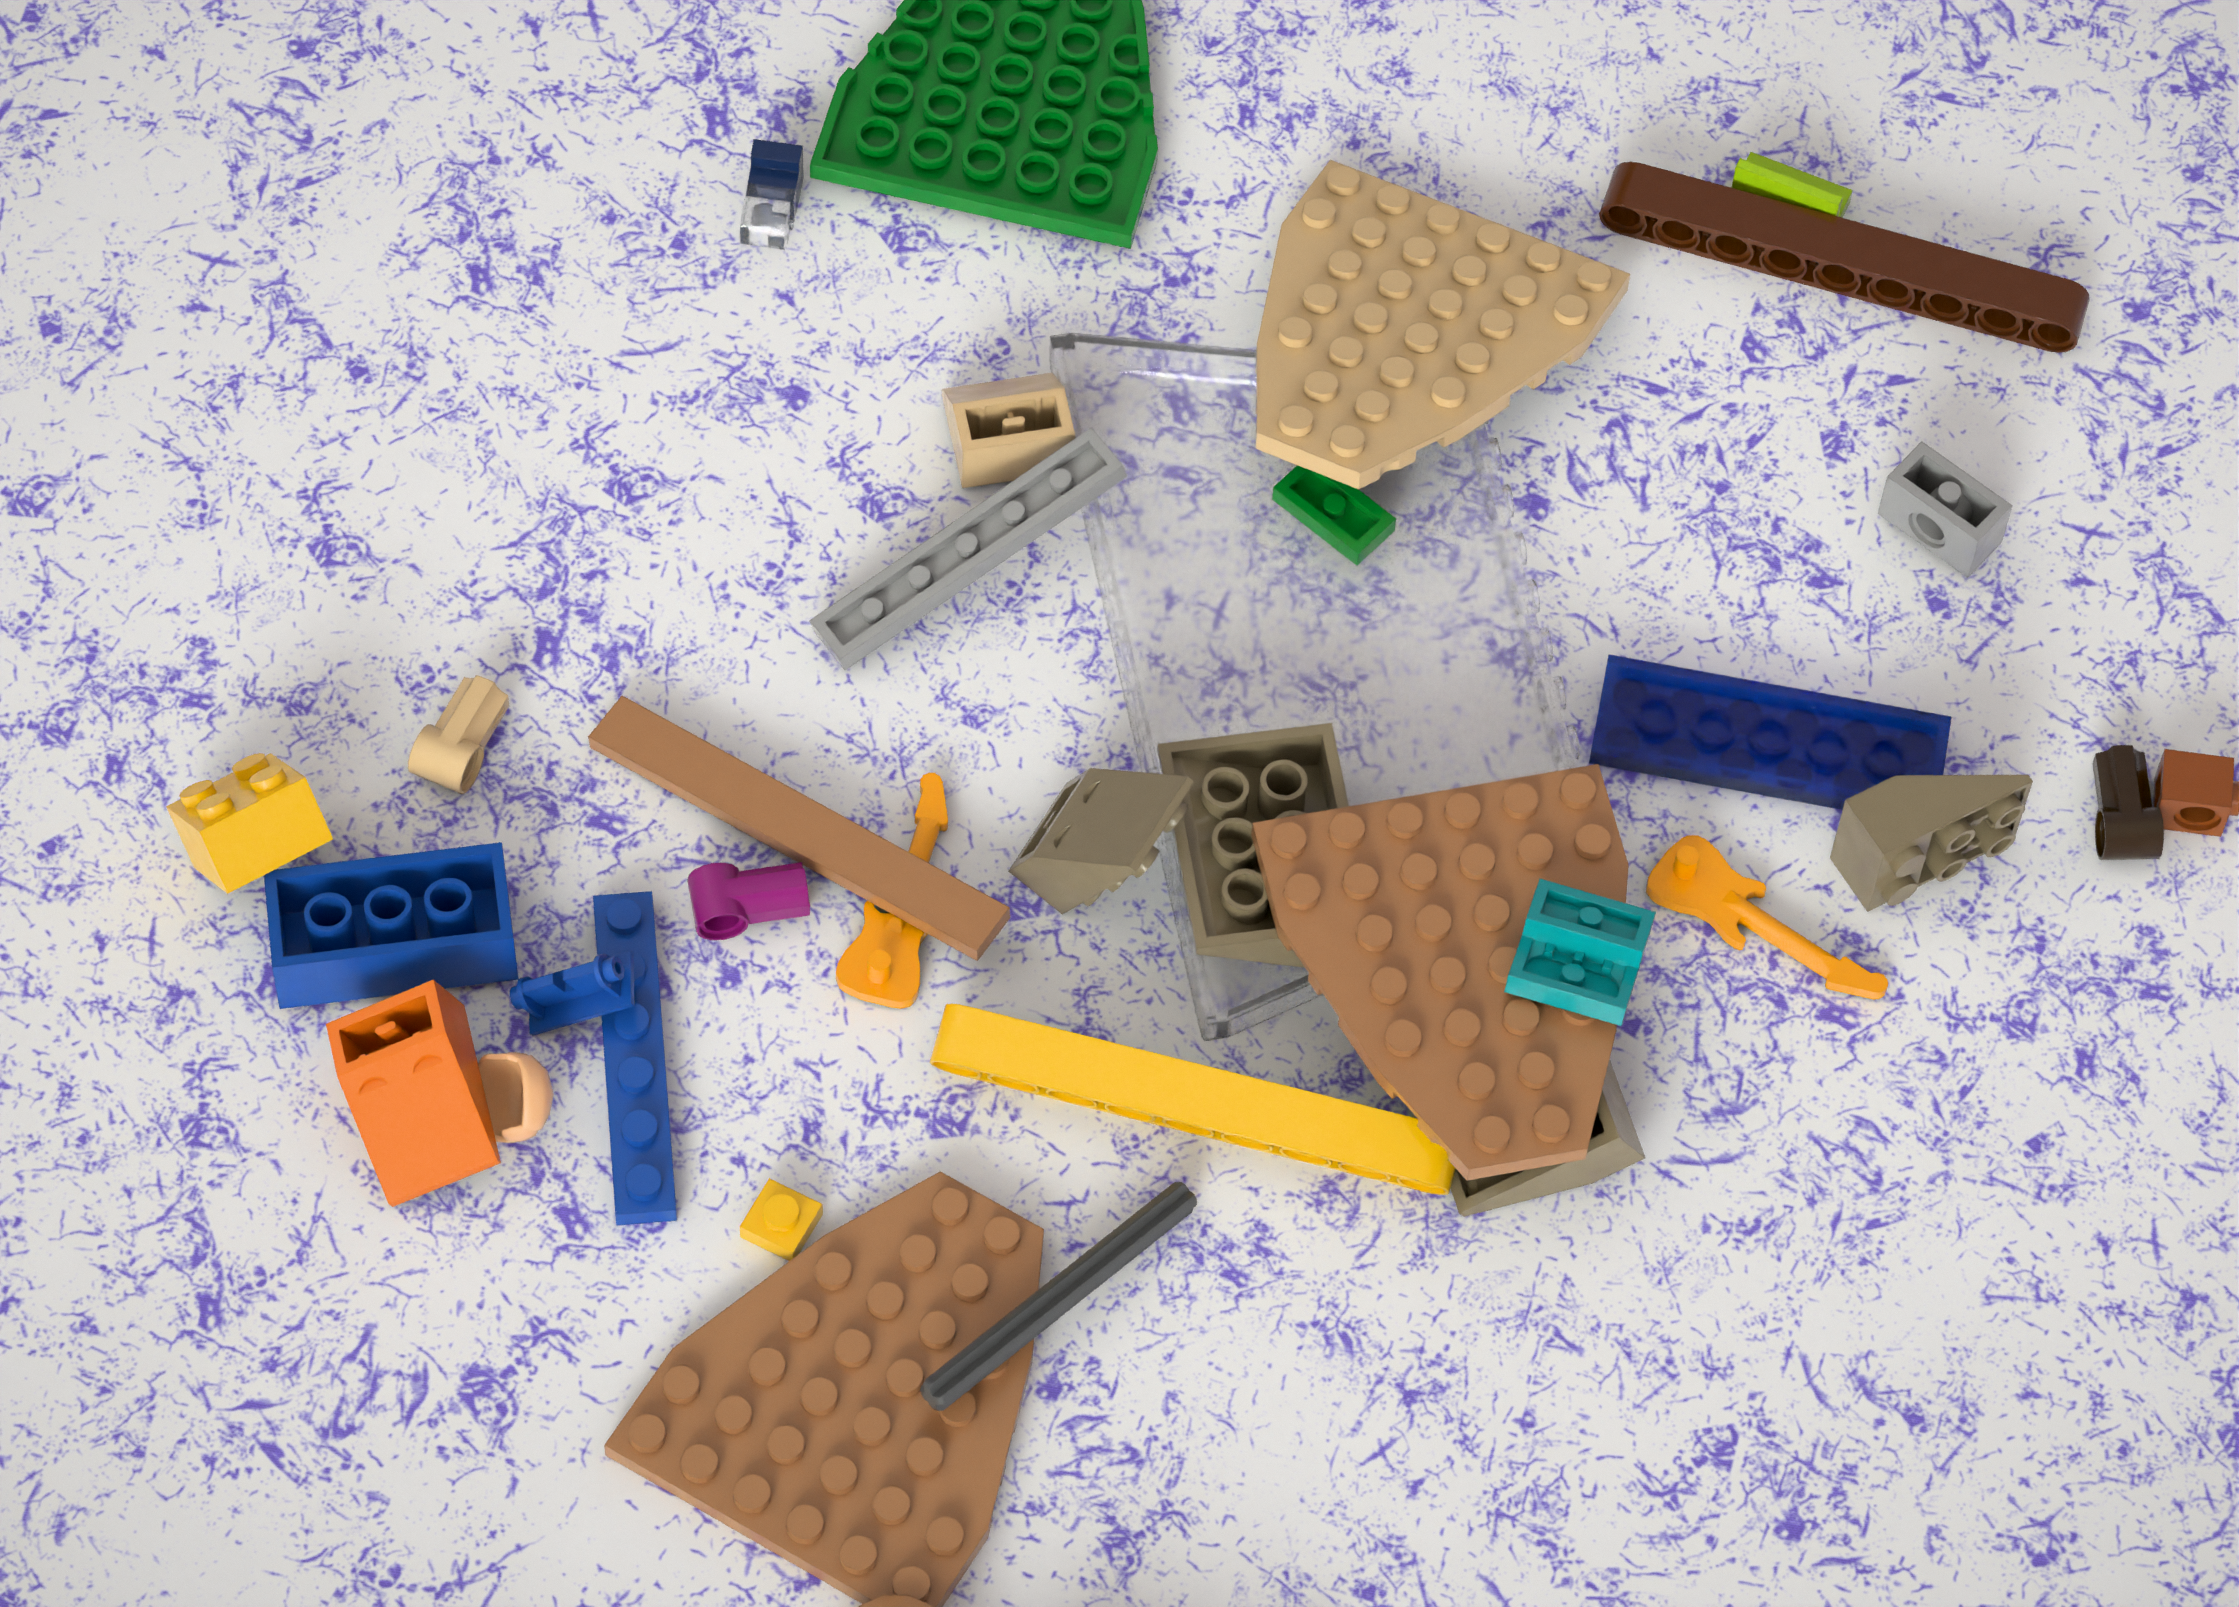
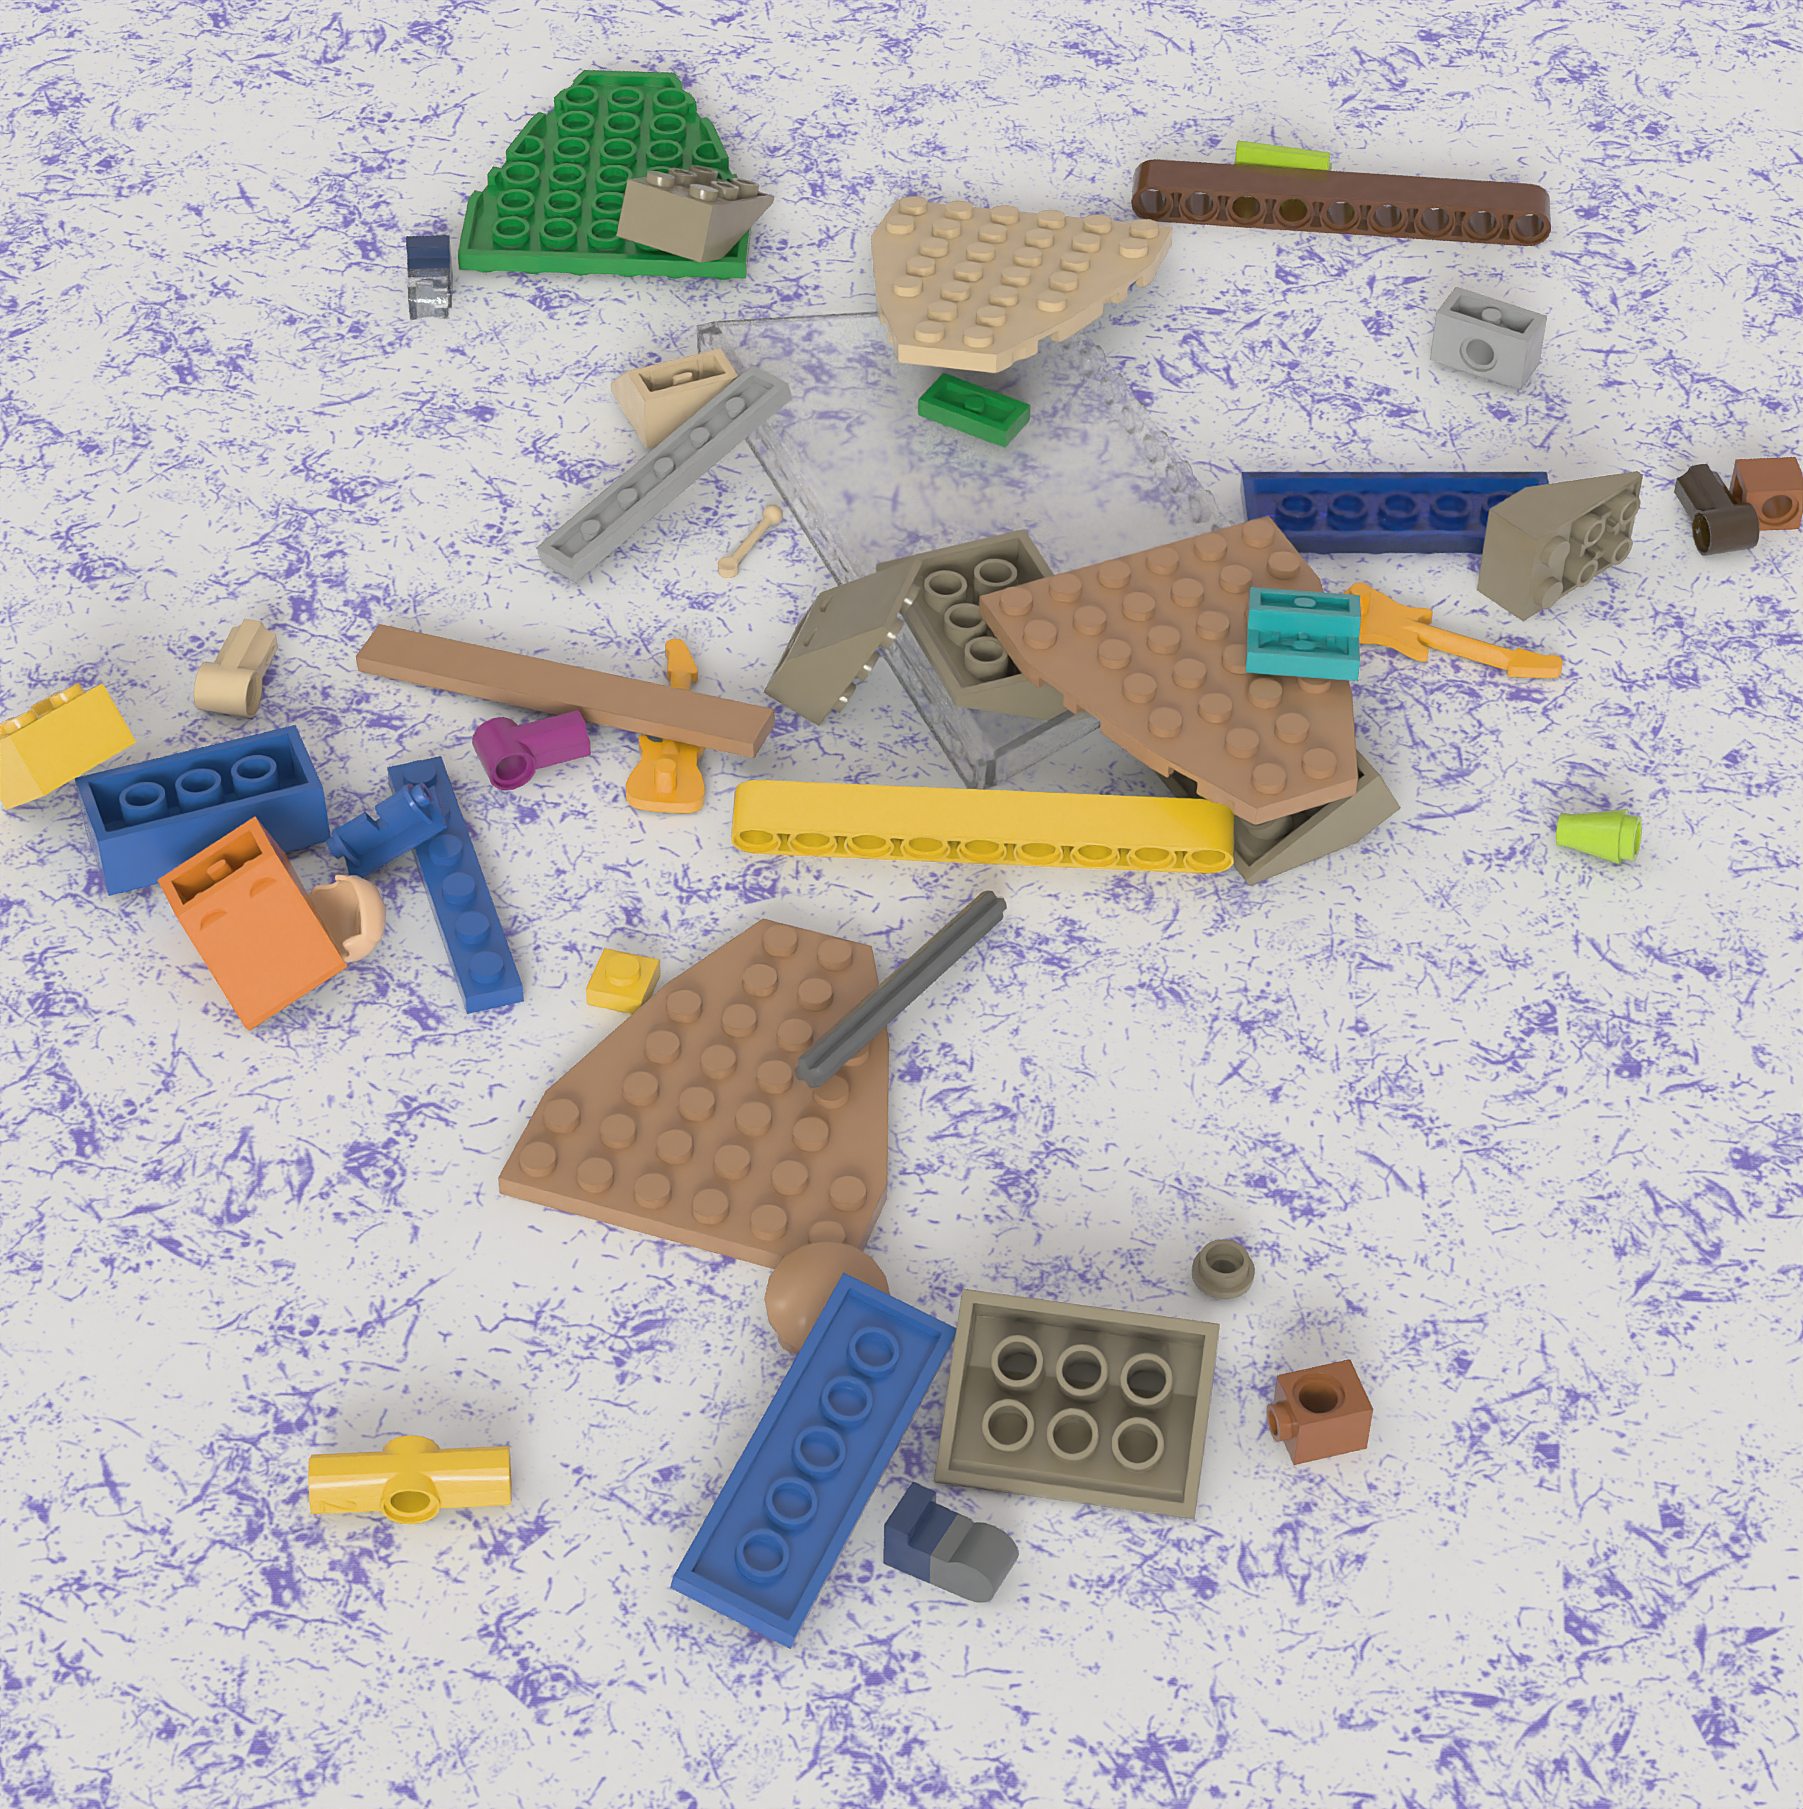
camera: 10 degrees left, 15 degrees down
(1015, 673) = (729, 565): none -> tan hinge
(1084, 159) = (690, 212): none -> dark tan slope
(1854, 1231) = (1603, 834): none -> lime cone

